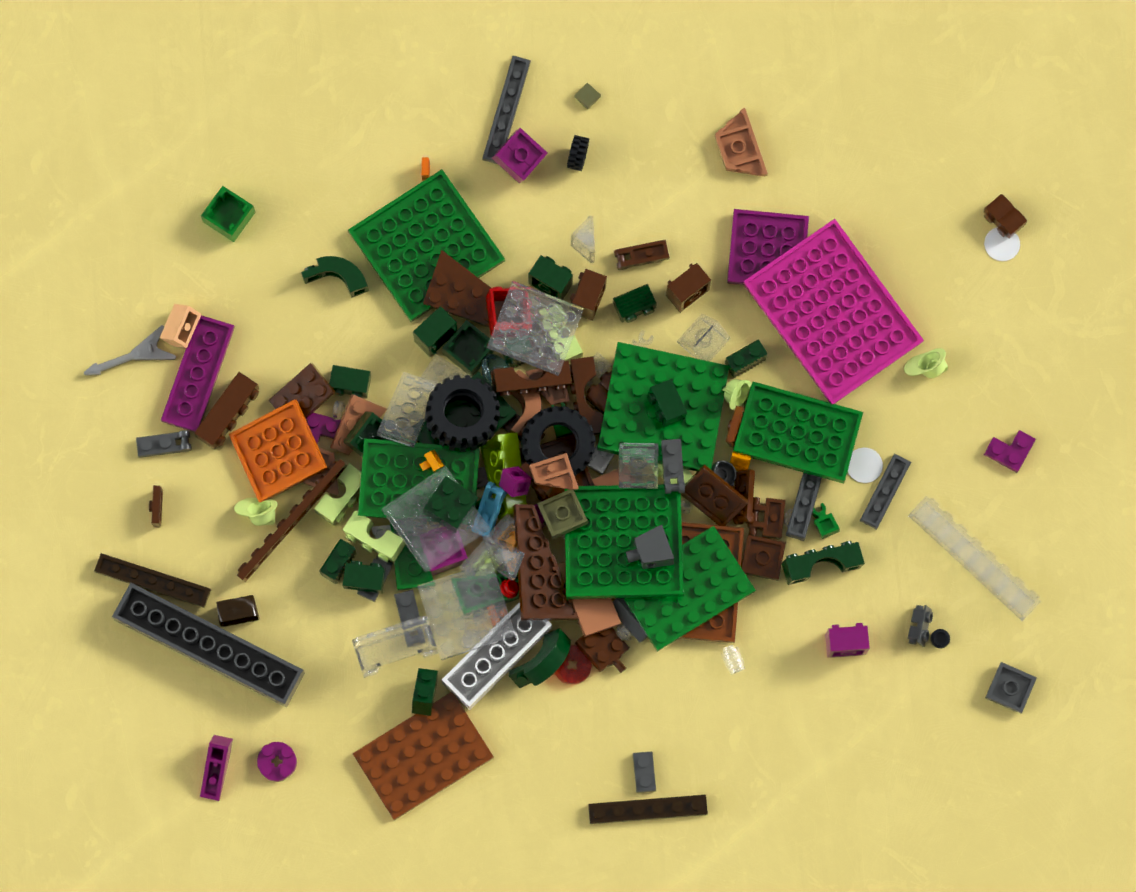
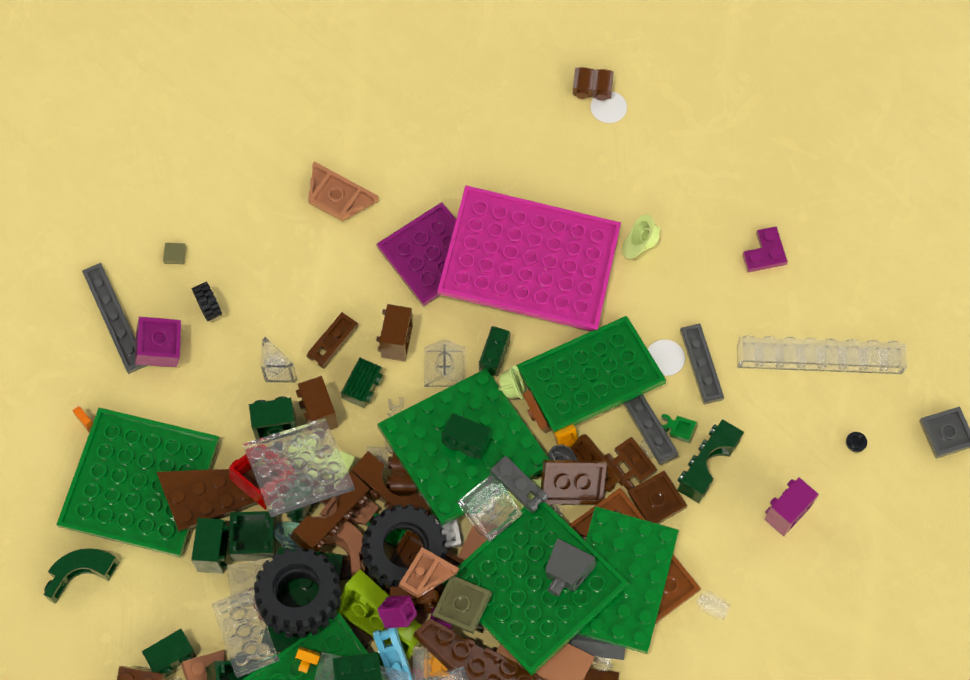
camera: 40 degrees left, 10 degrees down
(923, 616) = (836, 451): dark grey hinge -> none

